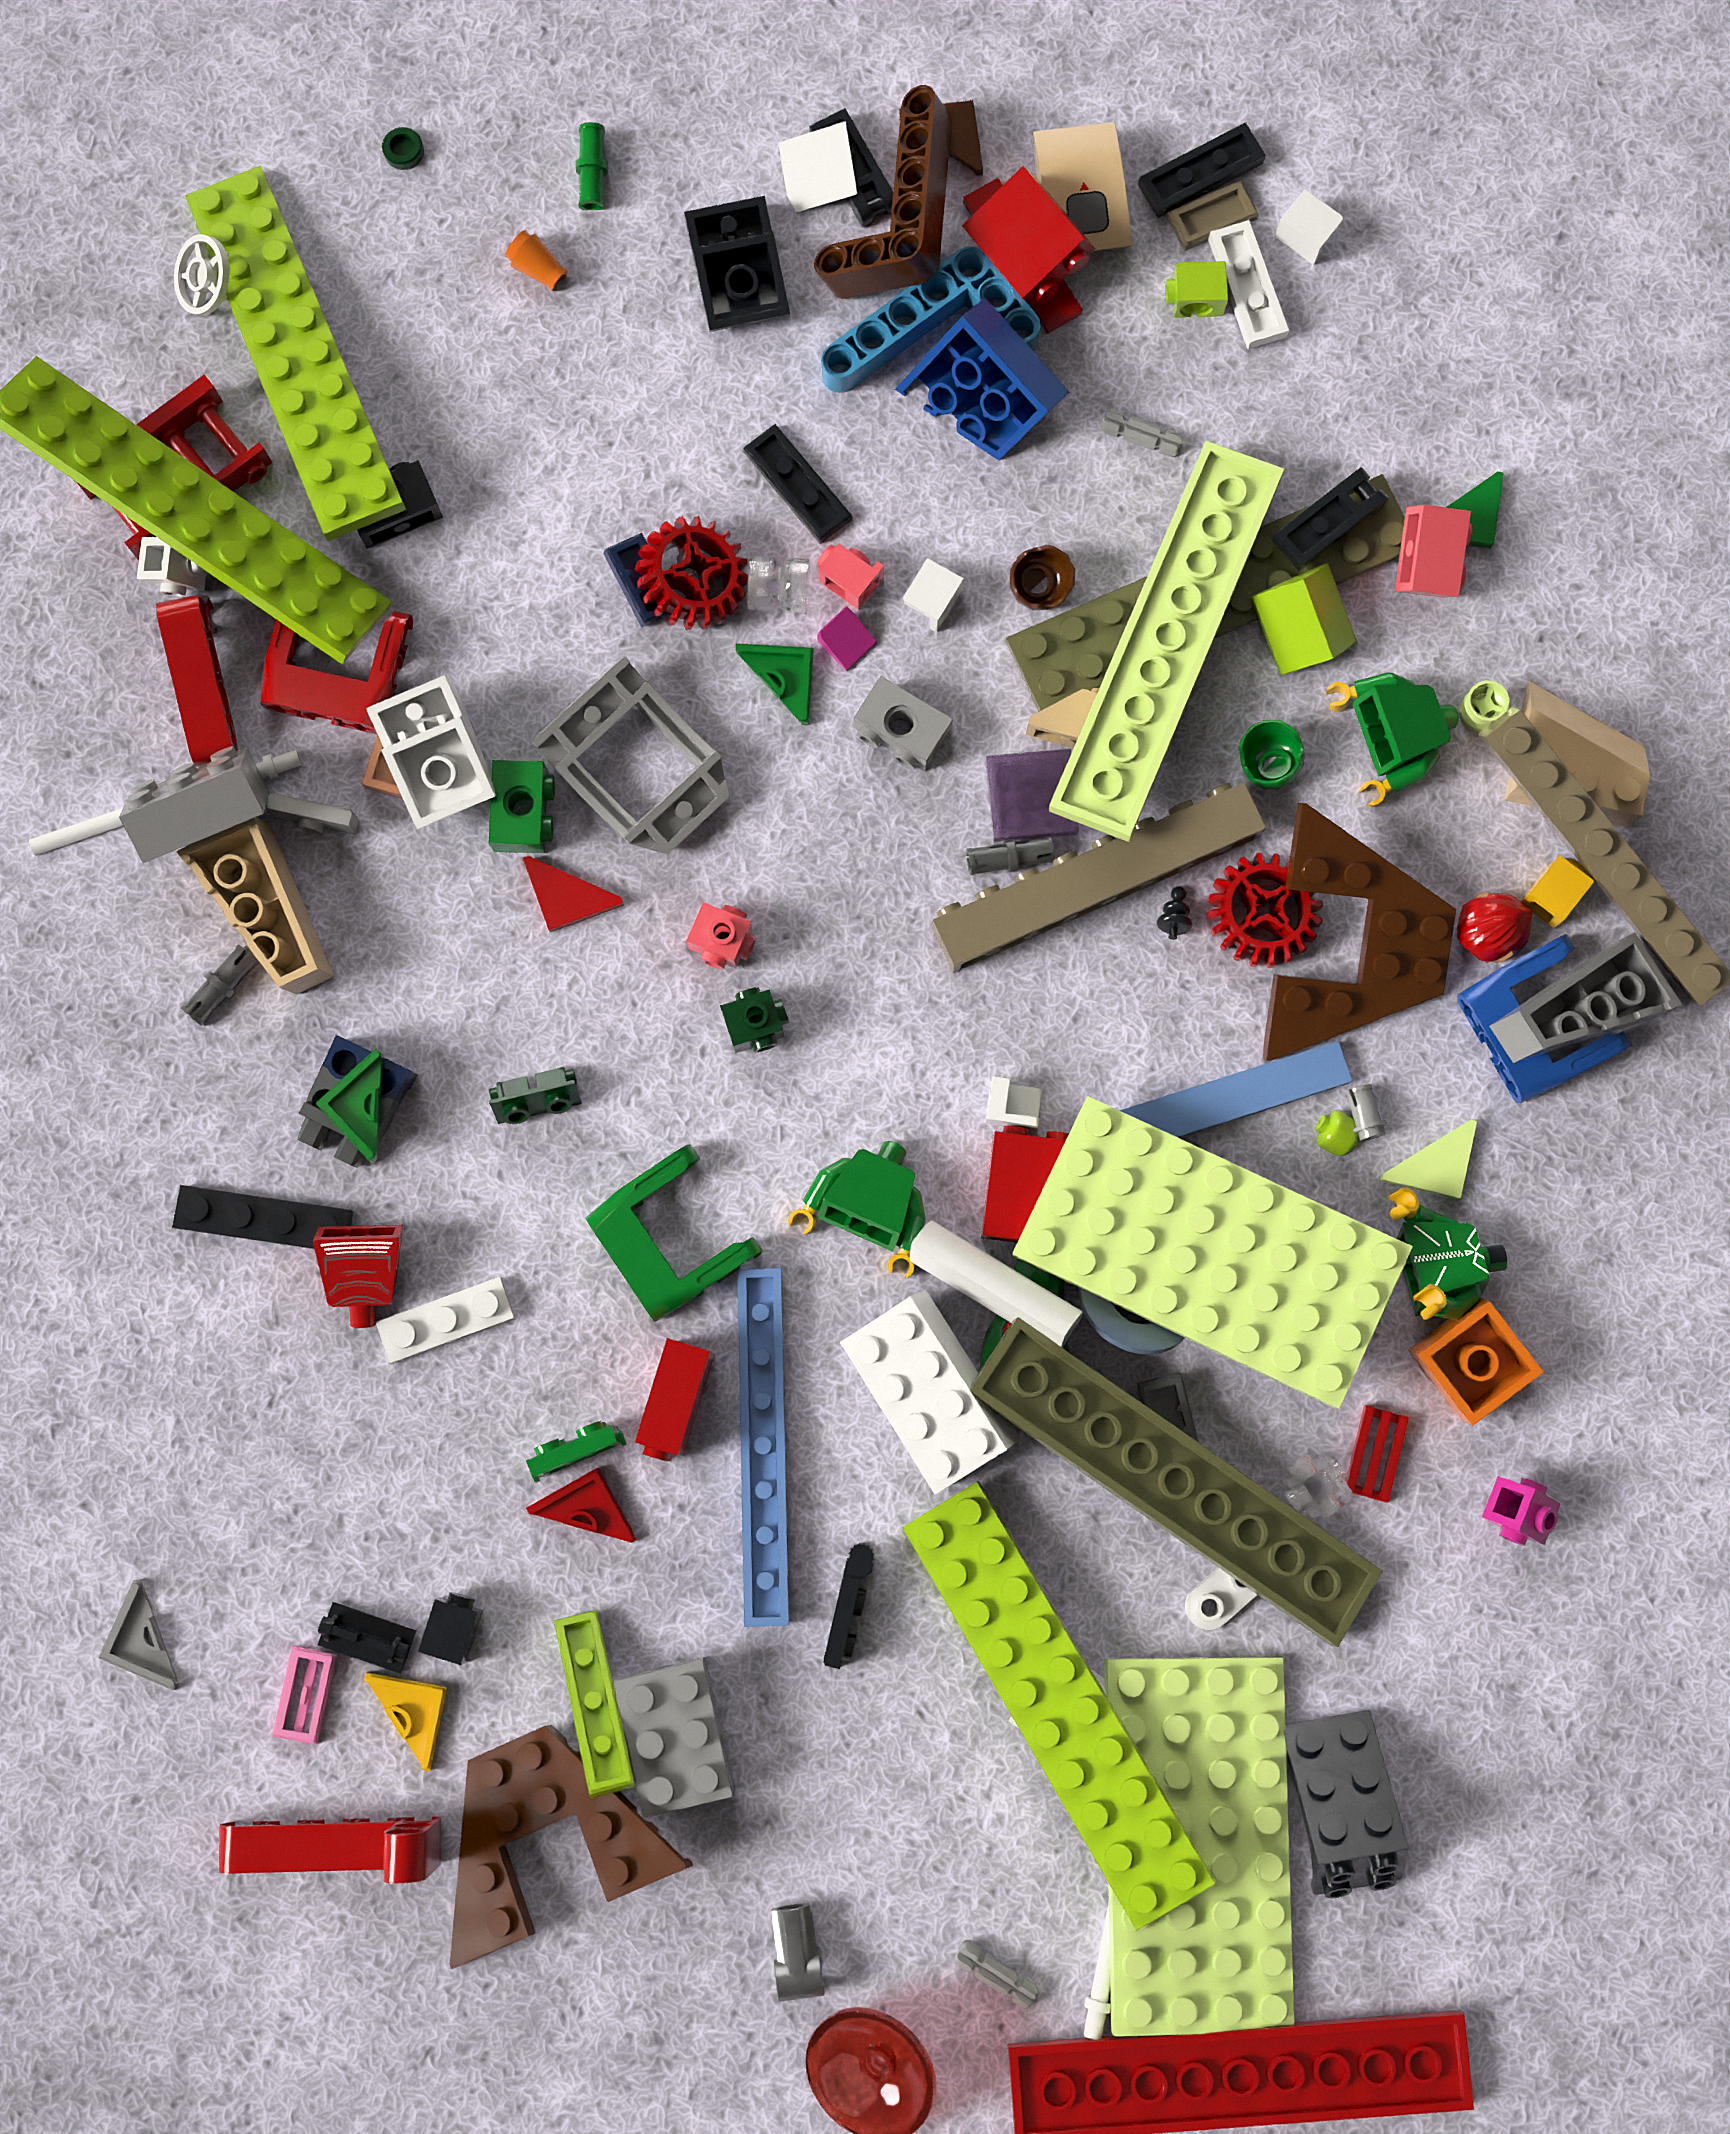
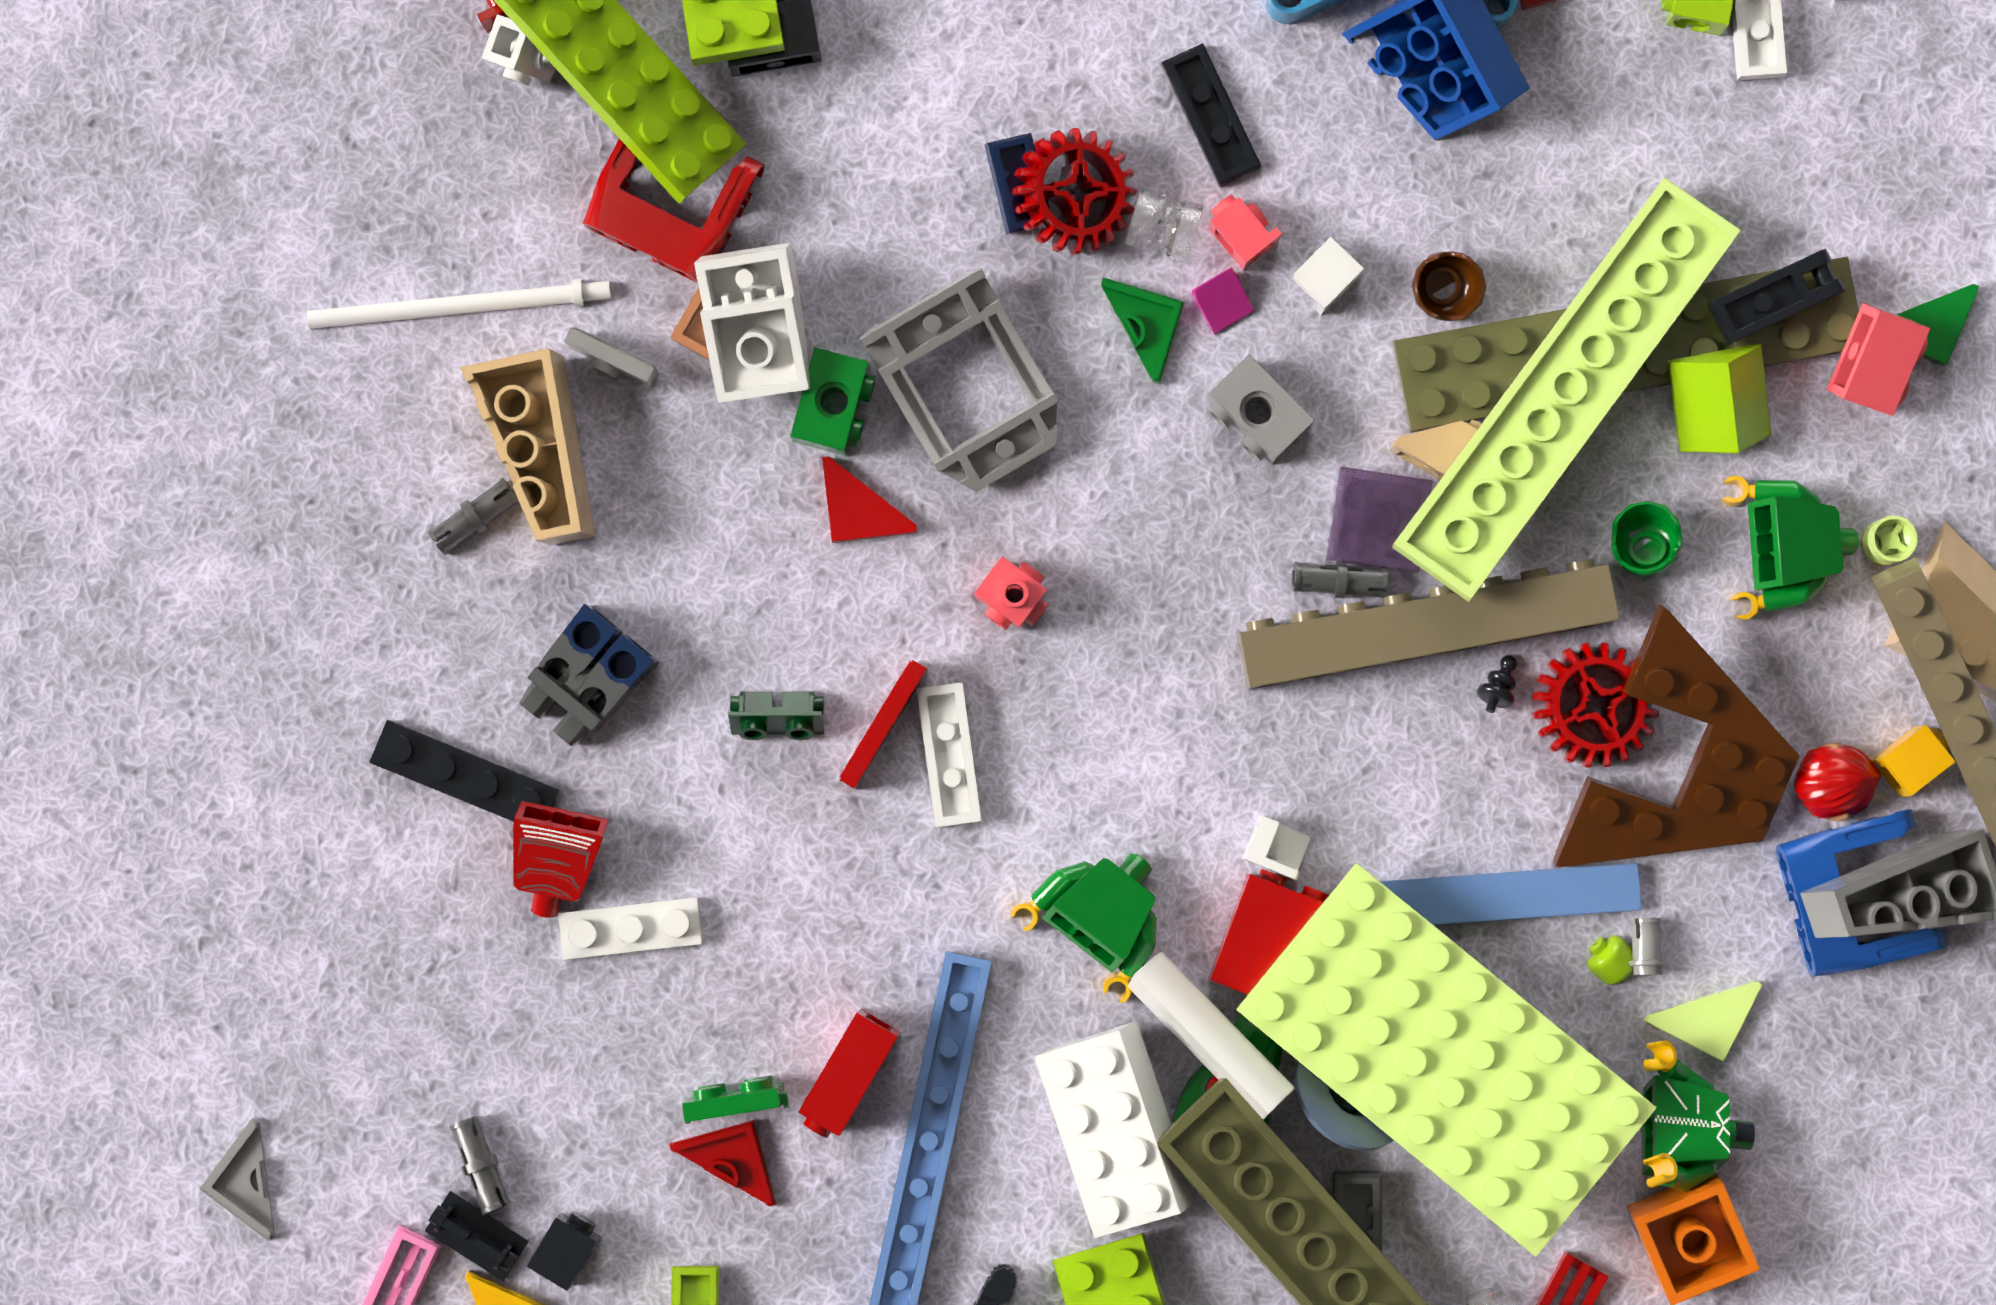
camera: 20 degrees right, 5 degrees up
(194, 803) = (490, 320): light grey brick -> none
(196, 675) = (522, 181): red beam -> none
(355, 1570) = (480, 1165): none -> flat silver pin
(356, 1104) = (589, 684): green tile -> none
(632, 1079) = (883, 724): none -> red tile
(639, 1257) = (846, 915): green connector -> none
(698, 1093) = (949, 755): none -> white plate
(759, 1035) = (1012, 706): dark green brick -> none
(1142, 433) = (1598, 147): light grey axle -> none

